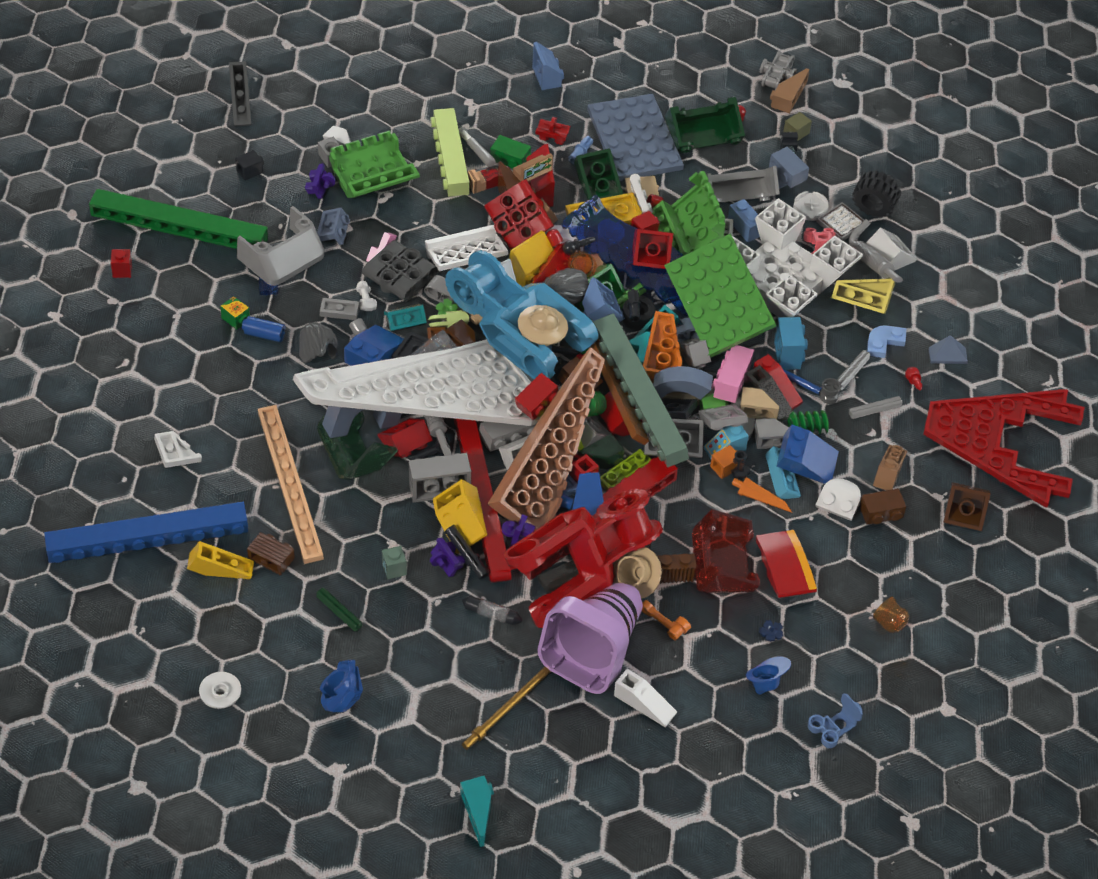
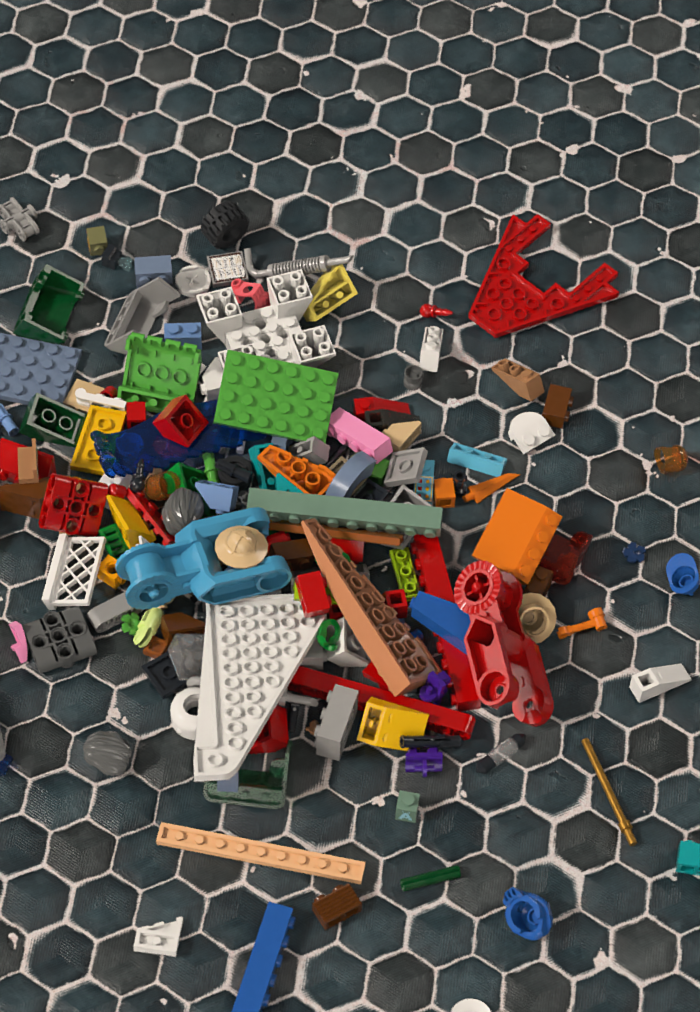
camera: 60 degrees left, 5 degrees up
(217, 562) = (322, 957): yellow slope -> none
(234, 312) = (20, 806): green brick -> none
(264, 329) = (56, 790): blue brick -> none
(339, 309) = (72, 713): light grey plate -> none
(357, 326) = (103, 708): light grey piece -> none
(366, 302) = (81, 687): white bar -> none
(371, 346) = (142, 707): blue slope -> none
(406, 316) = (116, 661): teal panel -> none
(509, 439) = (322, 634): none -> green piece
(590, 636) = (591, 685): lavender cone -> none
(605, 452) = (382, 575): clear green slope -> none
(703, 518) = (517, 535): none -> orange slope
(769, 433) = (435, 442): light grey slope -> none
(786, 563) = (580, 505): red slope -> none
(789, 91) = (54, 229): medium nougat slope -> none
(790, 343) = (353, 376): dark azure brick -> none
(802, 382) = (391, 391): blue bar -> none
(807, 455) = (476, 431): blue slope -> none
(809, 422) = (439, 411): green piece -> none
(853, 368) = (396, 348): light grey axle -> none
(870, 390) = (431, 349): none -> white slope
(875, 407) = (447, 355): light grey axle -> none
(884, 335) = (375, 312): light blue plate -> none
(891, 248) = (286, 250): white slope -> none
(948, 352) = (420, 274): sand blue slope -> none
(966, 506) = (589, 347): reddish brown slope -> none

